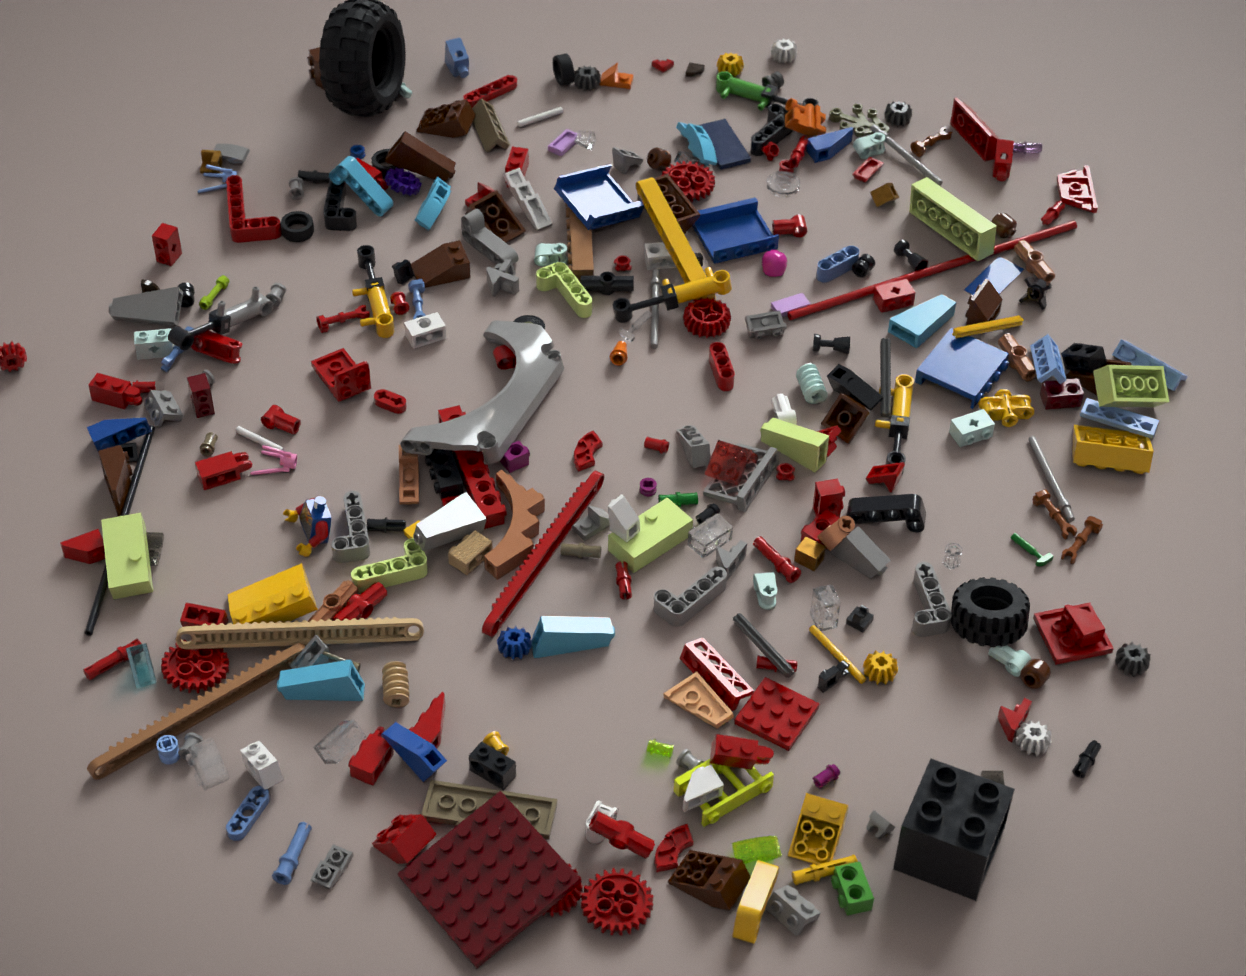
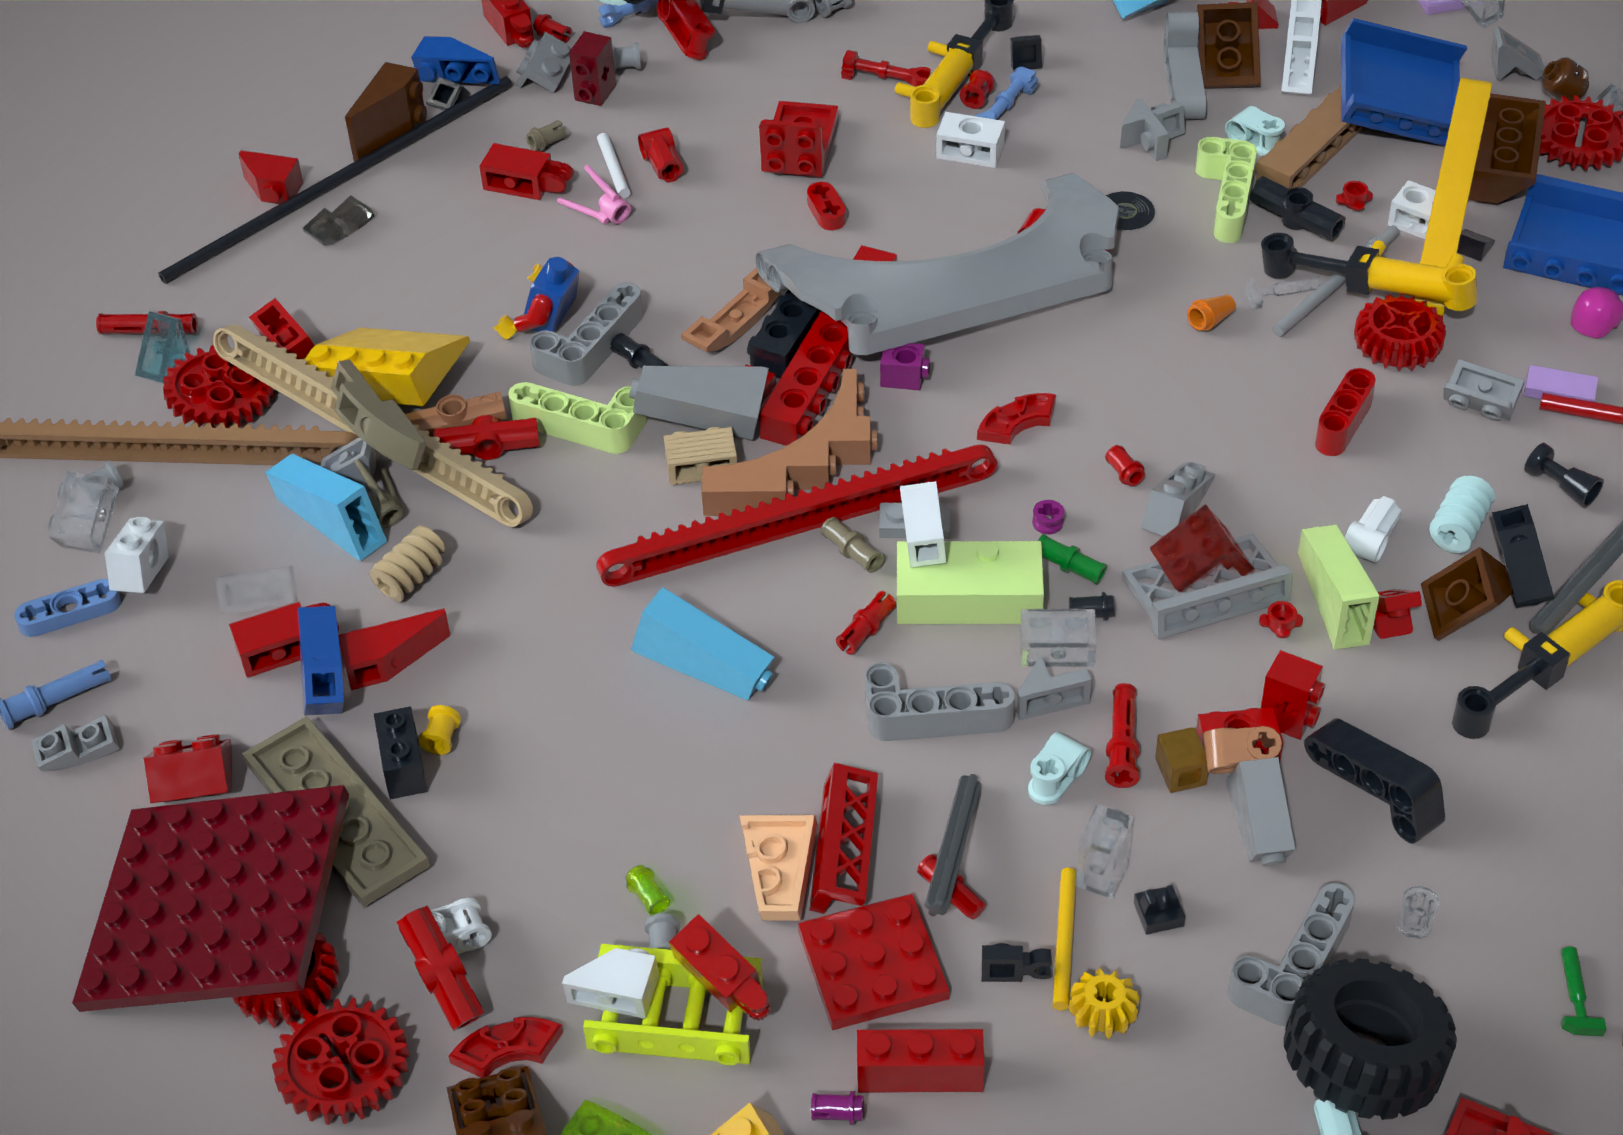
camera: 45 degrees right, 0 degrees up
(127, 556) = (290, 208): yellowish green brick -> none
(168, 749) = (70, 458): light blue wheel -> none
(315, 627) = (373, 420): none -> dark tan slope
(443, 265) = (1090, 71): reddish brown slope -> none
(514, 643) = (617, 609): blue gear -> none
(839, 736) = (920, 1060): none -> red brick
(888, 473) = (1441, 722): red slope -> none

